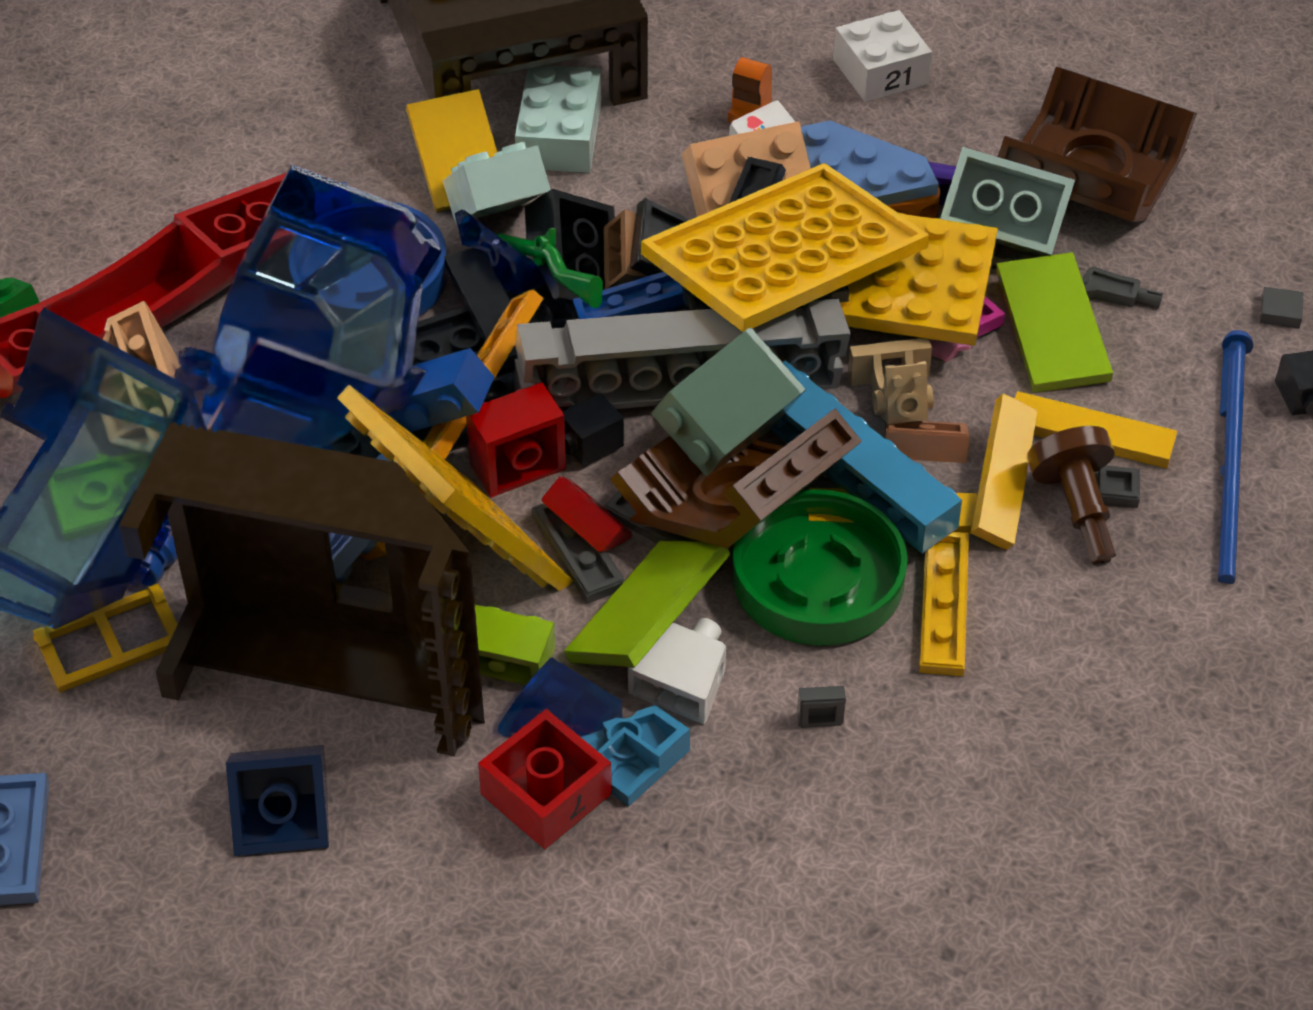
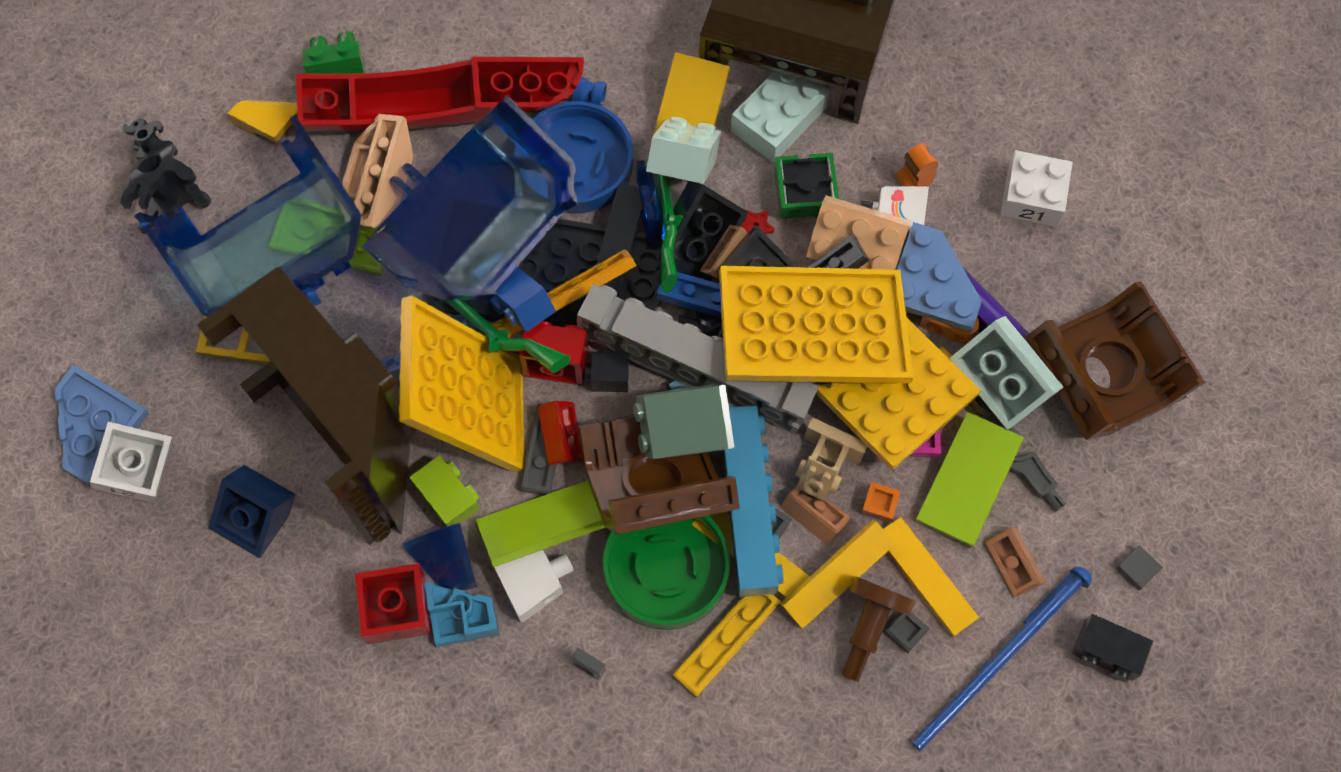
camera: 35 degrees right, 20 degrees up
(82, 826) = (131, 462): none -> white brick
(451, 442) = (498, 340): none -> green piece
(643, 165) = (804, 184): none -> piece
(983, 388) = (881, 501): none -> orange plate
(1163, 368) = (1014, 561): none -> nougat slope

